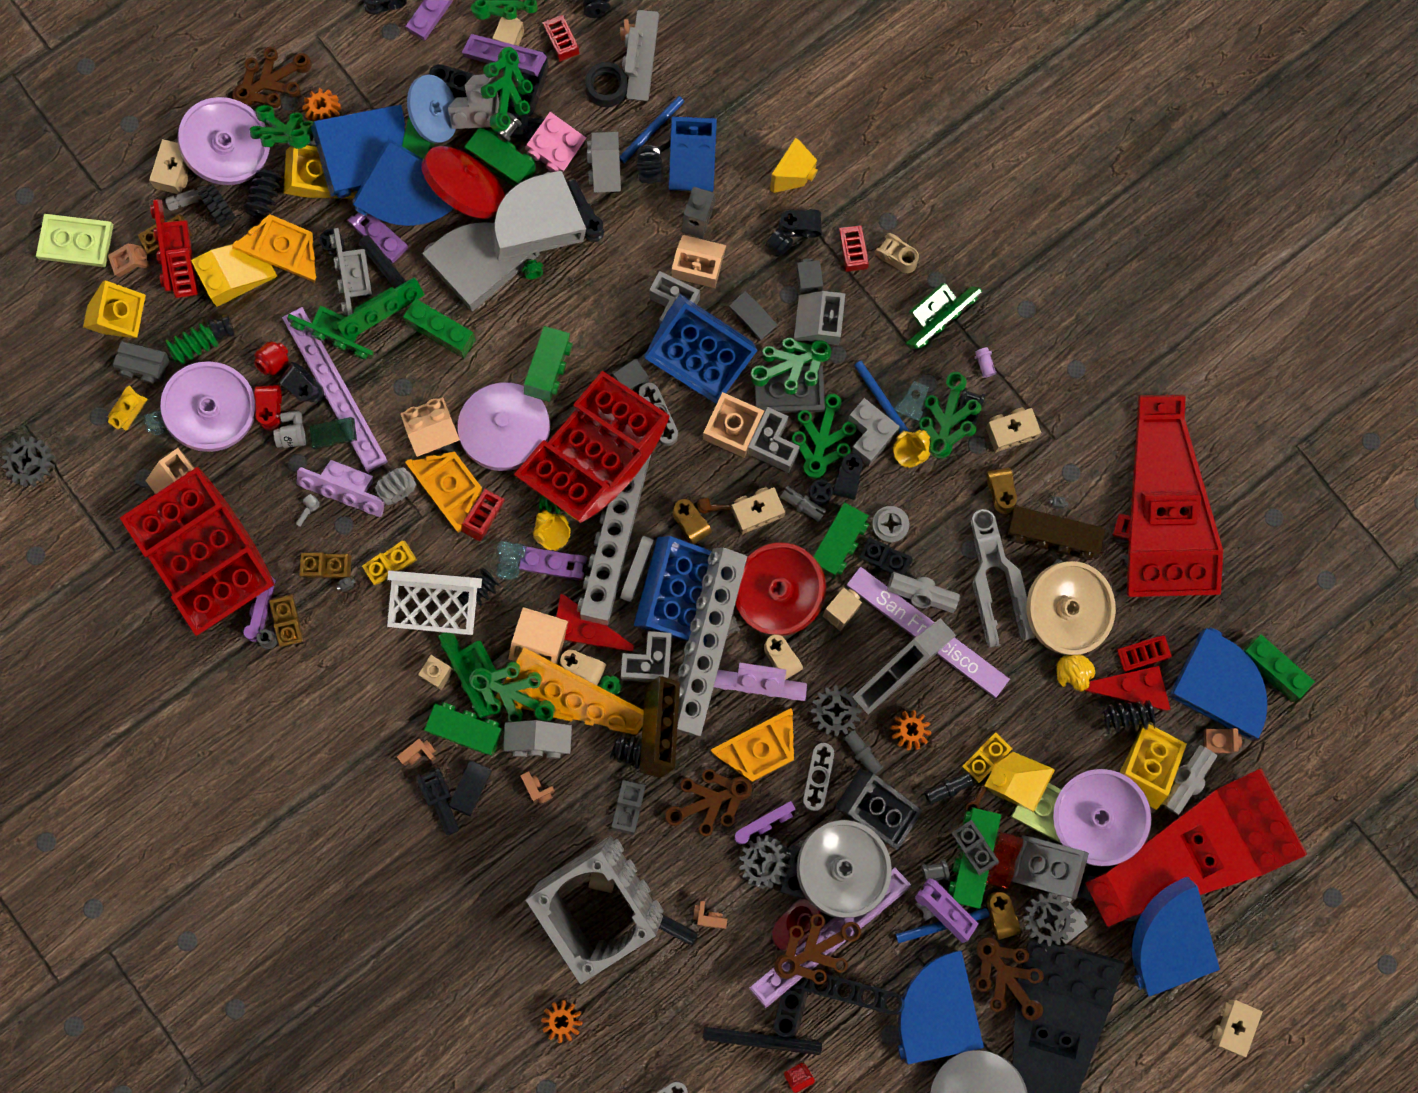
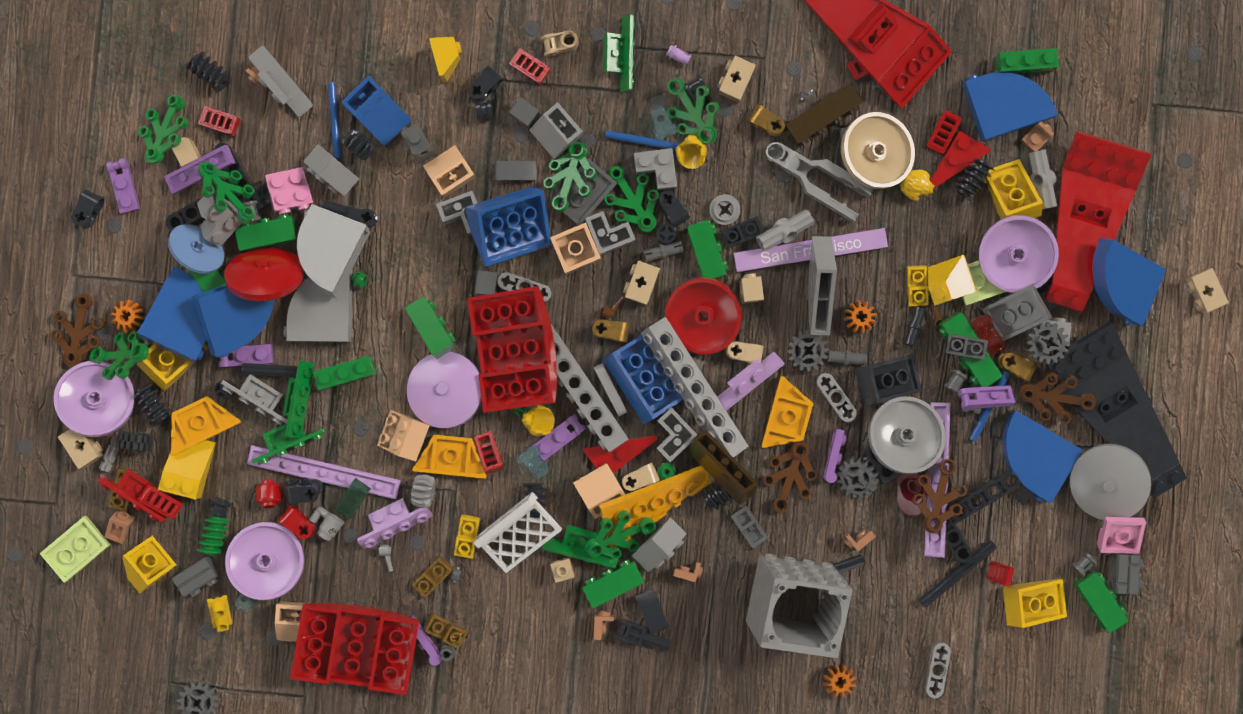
camera: 40 degrees left, 10 degrees up
(606, 68) = (278, 107): black tyre -> none

